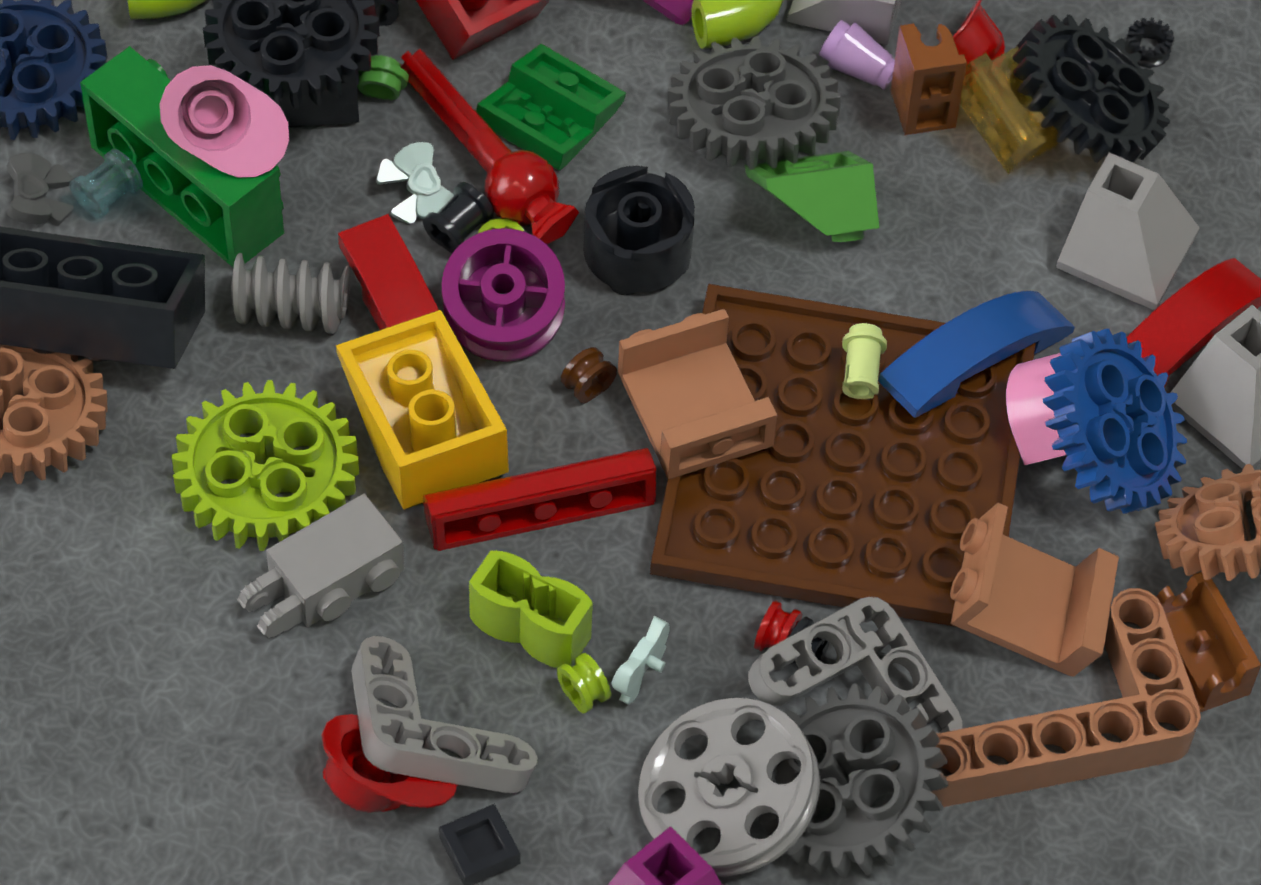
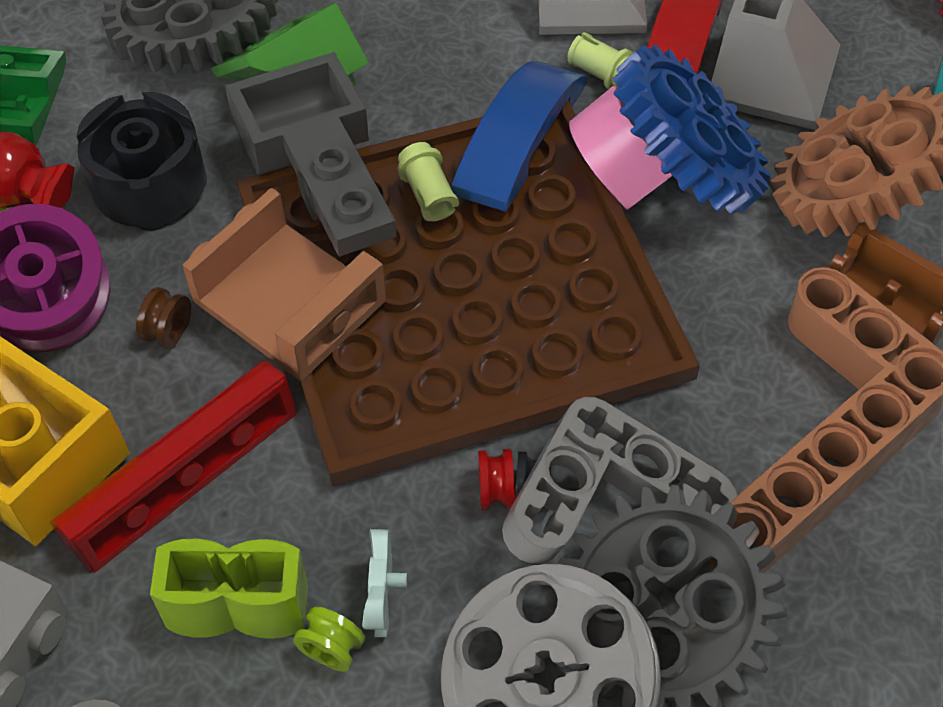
camera: 25 degrees left, 0 degrees up
(788, 259) = (312, 120): none -> dark grey plate
(1031, 598) = (722, 329): nougat panel -> none
(1091, 312) = (596, 58): none -> yellowish green pin

